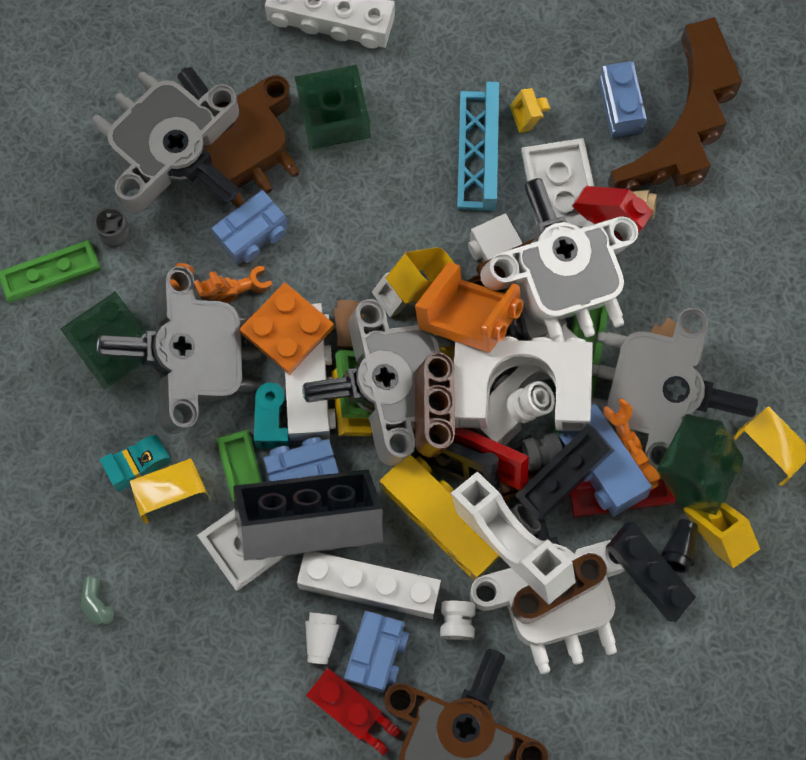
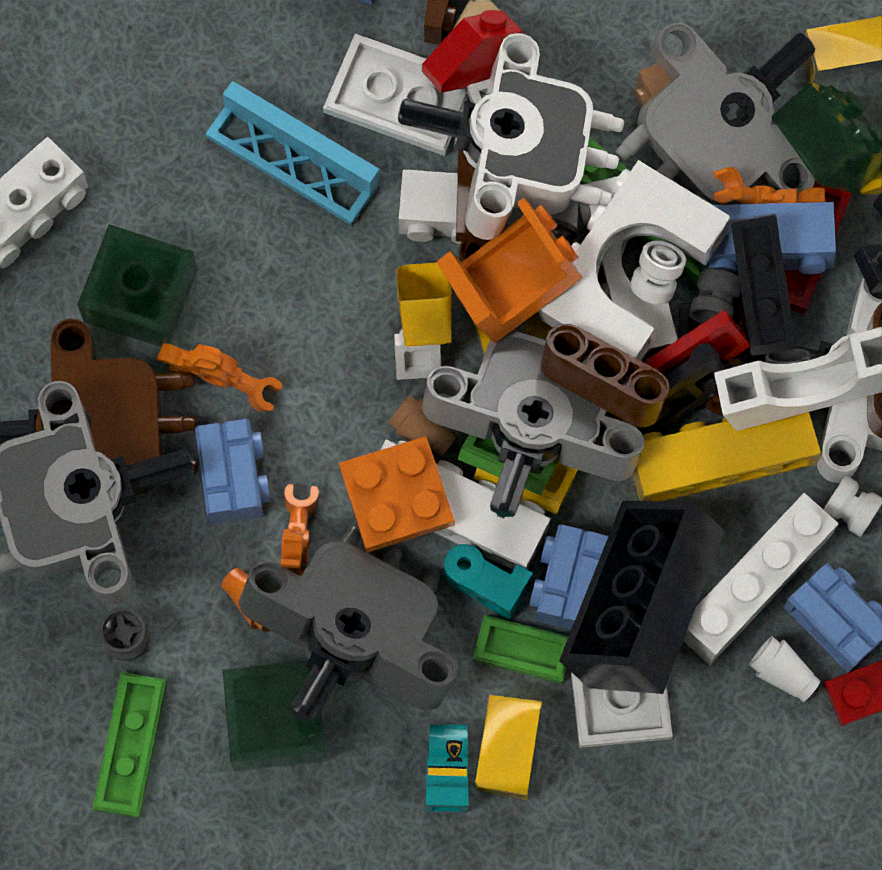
camera: 60 degrees left, 0 degrees up
(308, 186) = (218, 370): none -> orange piece
(528, 109) = (282, 72): yellow tile -> none

